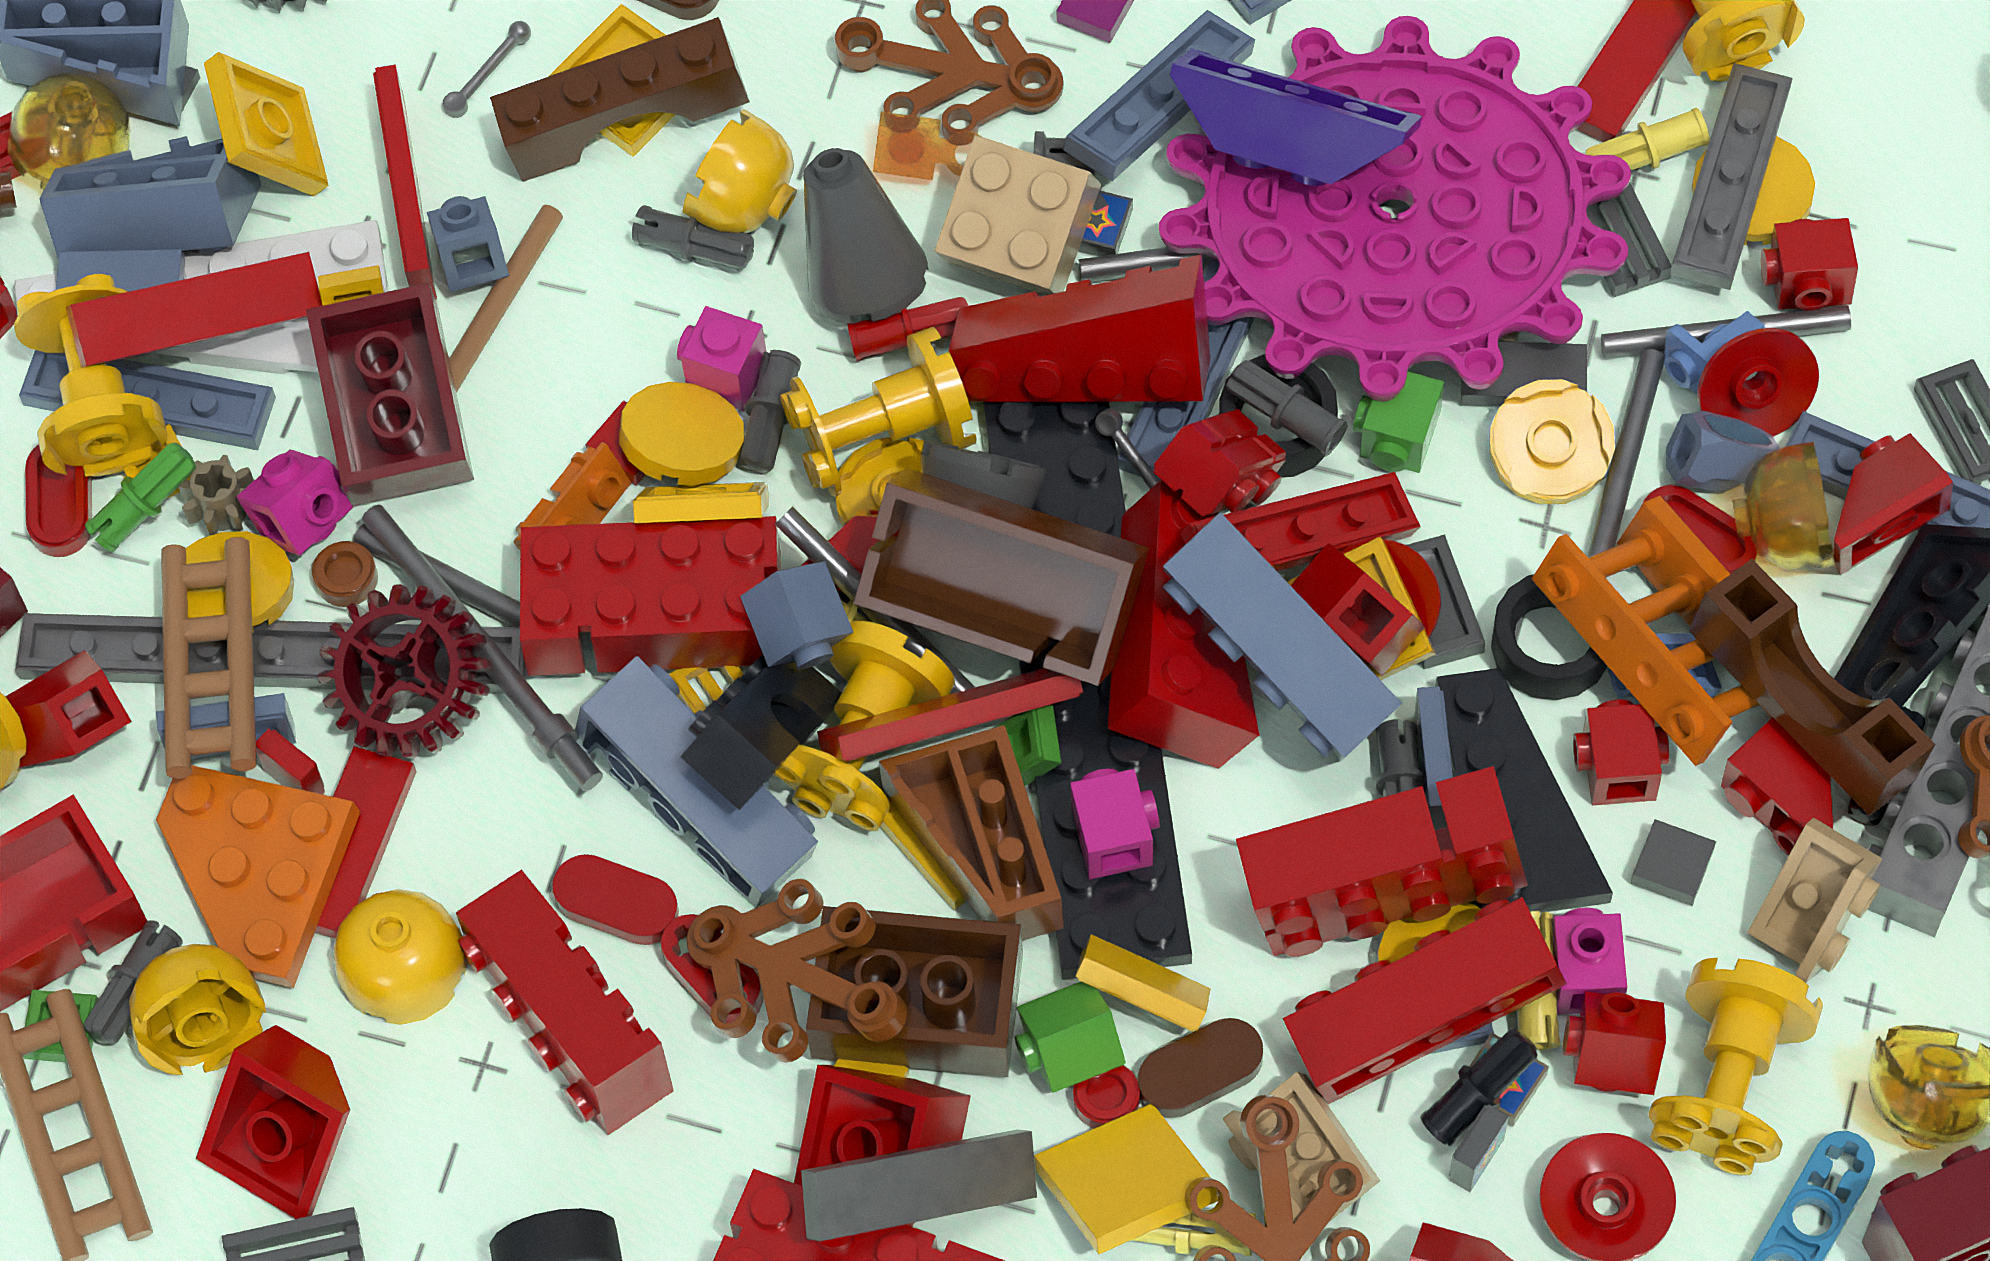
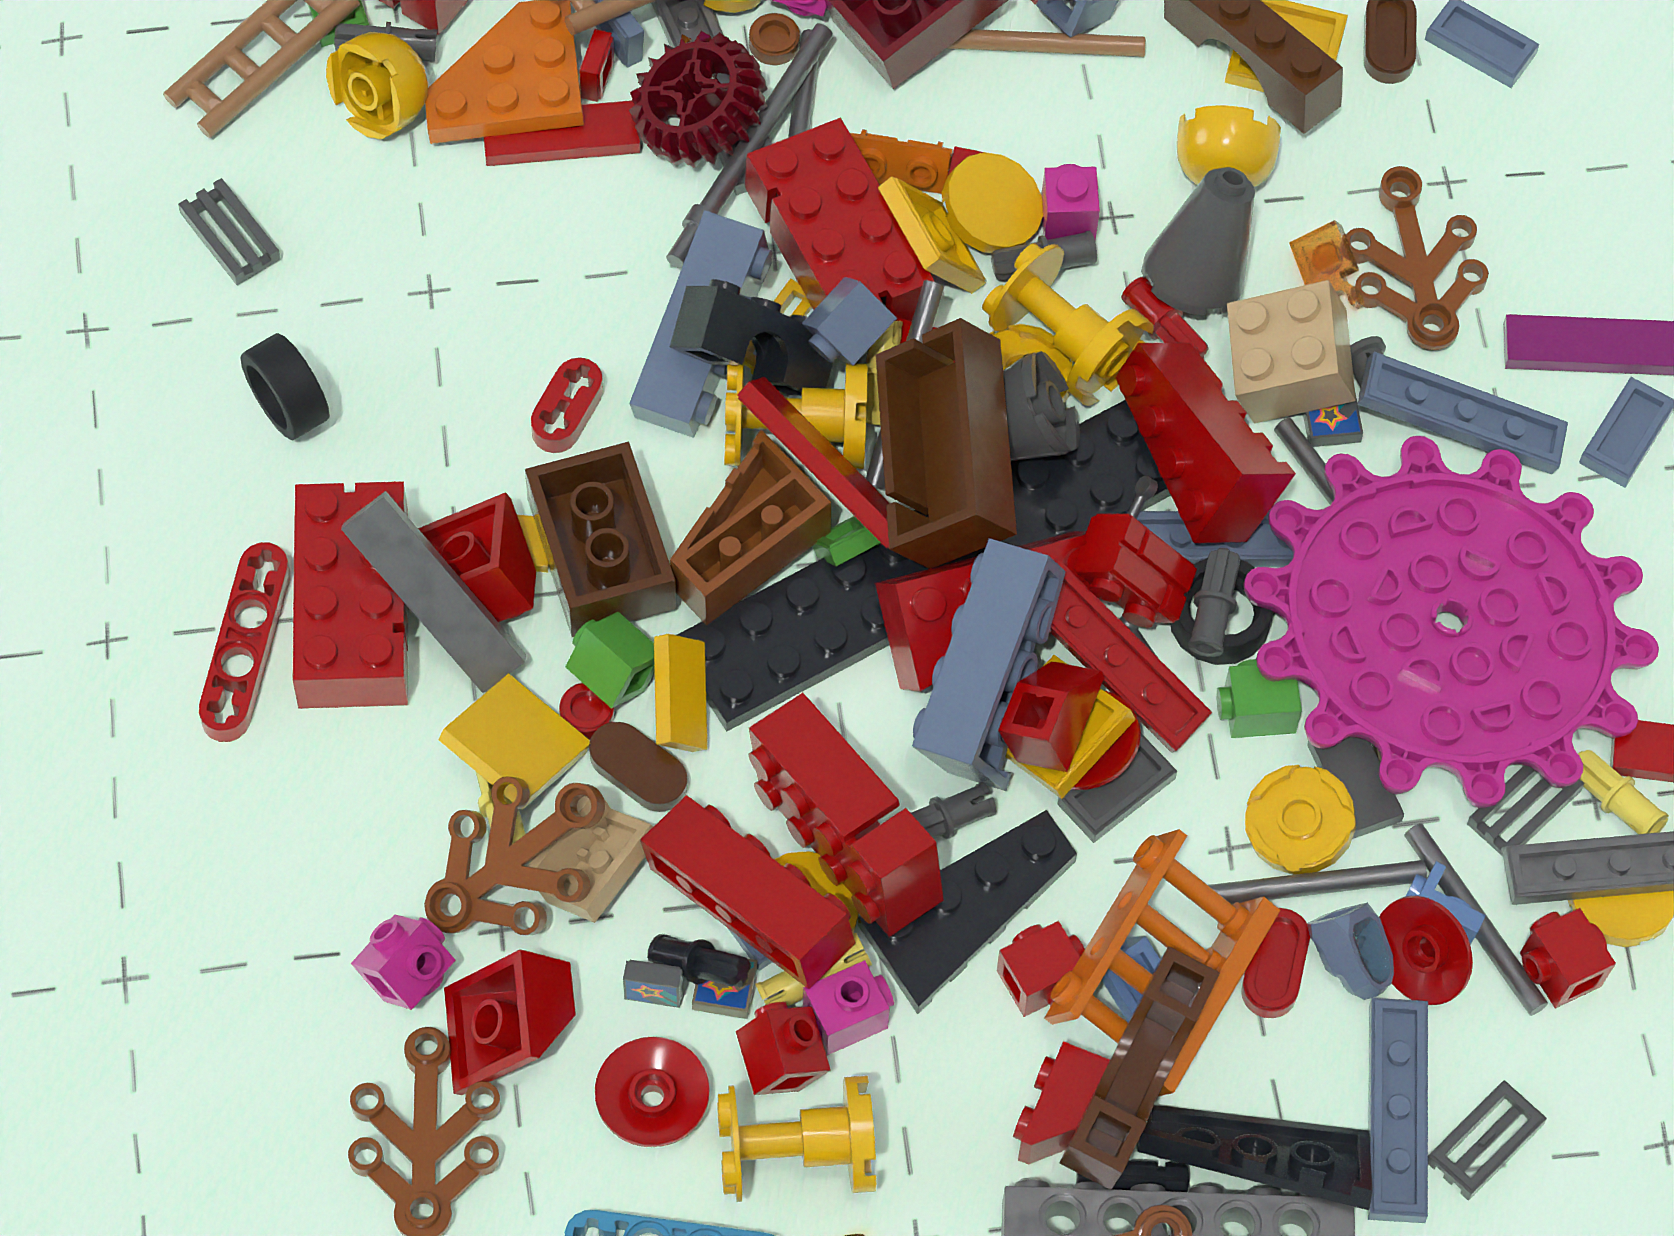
camera: 60 degrees right, 0 degrees up
(277, 1121) = (322, 168): red slope -> none
(399, 956) = (484, 198): yellow cylinder -> none
(561, 997) = (488, 315): red wedge -> none
(614, 898) = (595, 318): red tile -> none
(692, 238) = (1163, 144): dark grey axle -> none
(786, 966) = (578, 395): dark orange plant -> none
(1113, 821) = (795, 614): dark pink brick -> none
(1286, 121) = (1474, 496): dark purple wedge -> none
(1433, 747) = (977, 827): sand blue tile -> none
(1525, 672) = (1103, 844): black tyre -> none
(1673, 862) = (970, 1045): dark grey tile -> none
(1786, 510) = (1319, 1015): clear yellow cylinder -> none
(1815, 897) = (972, 1153): tan bracket -> none
(1888, 498) = (1357, 1080): red slope -> none

